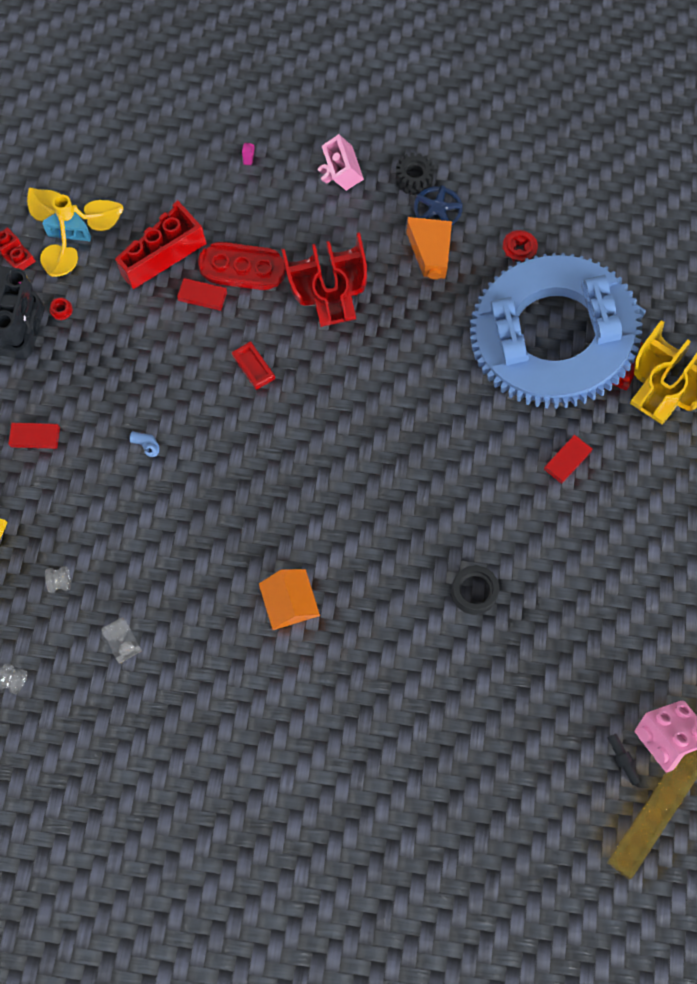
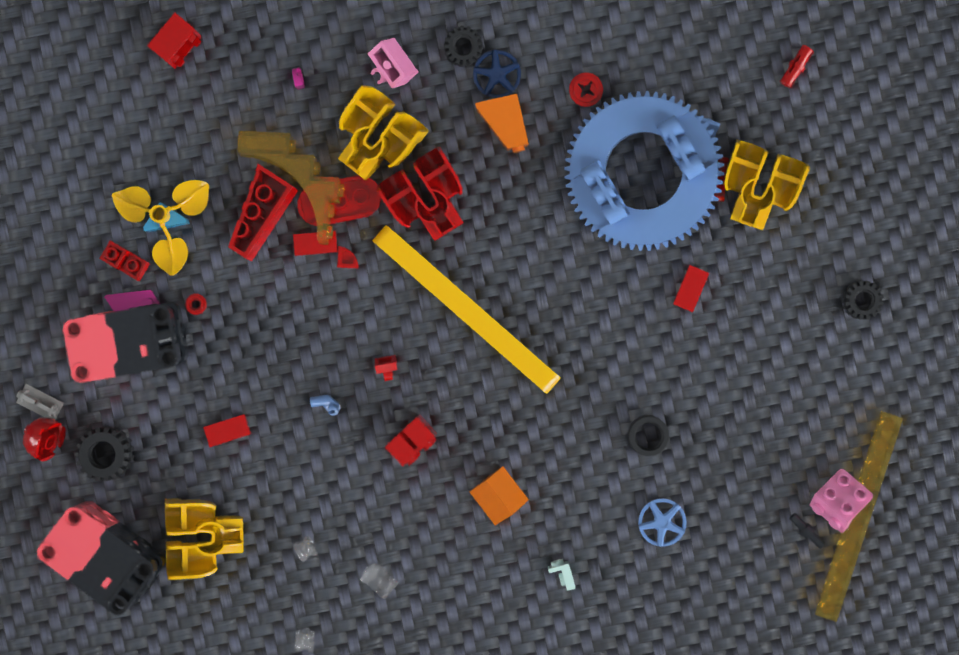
camera: 20 degrees left, 20 degrees up
(148, 82) = (175, 41): none -> red container
(205, 204) = (277, 150): none -> clear yellow arch
(218, 509) = (411, 440): none -> red piece
(223, 426) = (386, 366): none -> red tile
(226, 318) = (346, 259): none -> red tile
(253, 365) = (388, 296): red tile -> none
(296, 192) = (395, 142): none -> yellow piece
(329, 711) = (566, 576): none -> light aqua bracket
(330, 404) = (466, 309): none -> yellow beam
(459, 691) = (662, 522): none -> medium blue wheel

